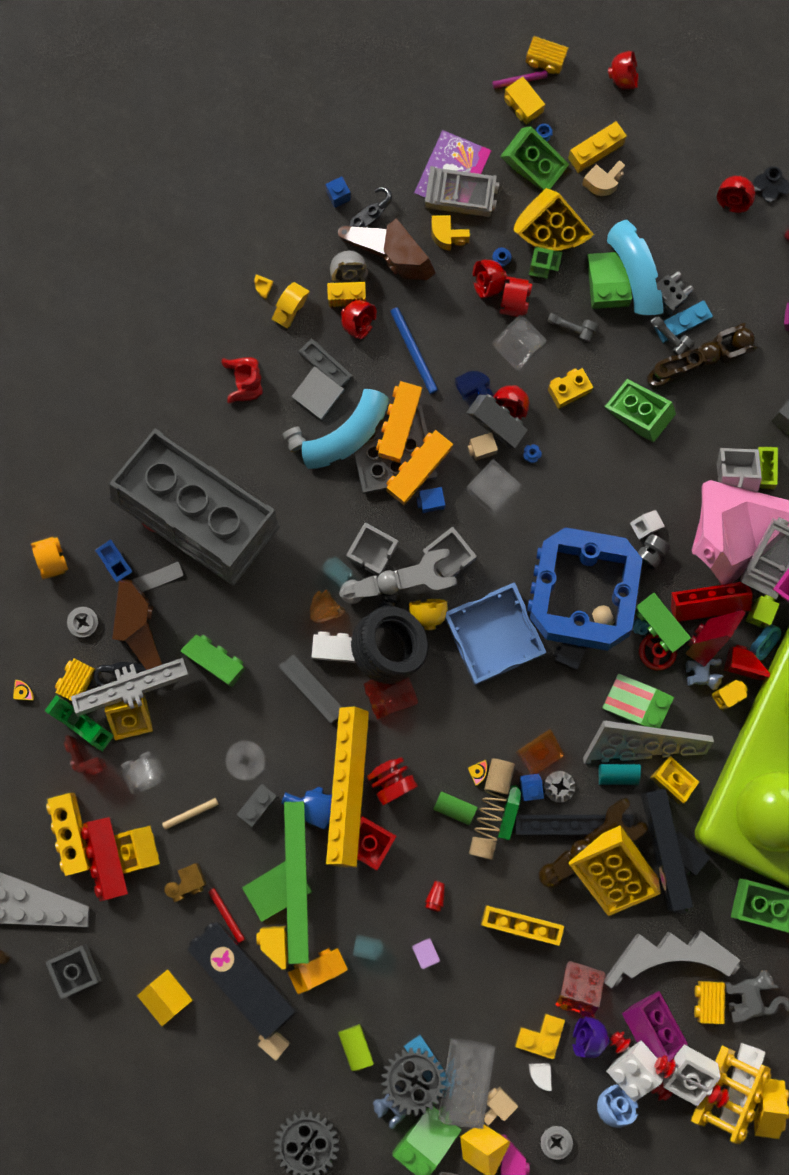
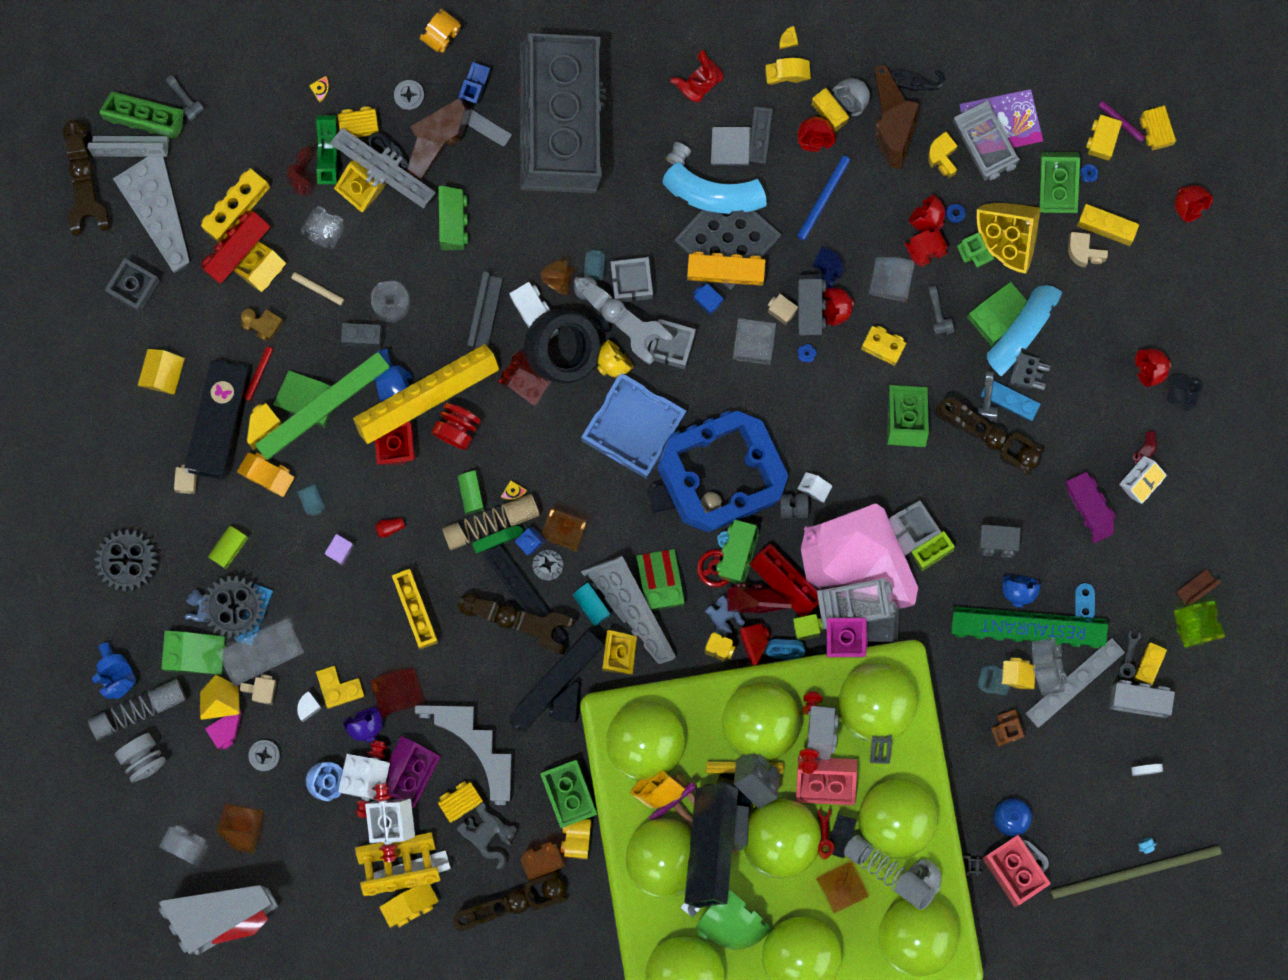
camera: 55 degrees right, 0 degrees up
(338, 192) = (911, 42): blue brick -> none
(399, 422) = (752, 227): light orange brick -> none
(615, 872) = (509, 652): yellow slope -> none

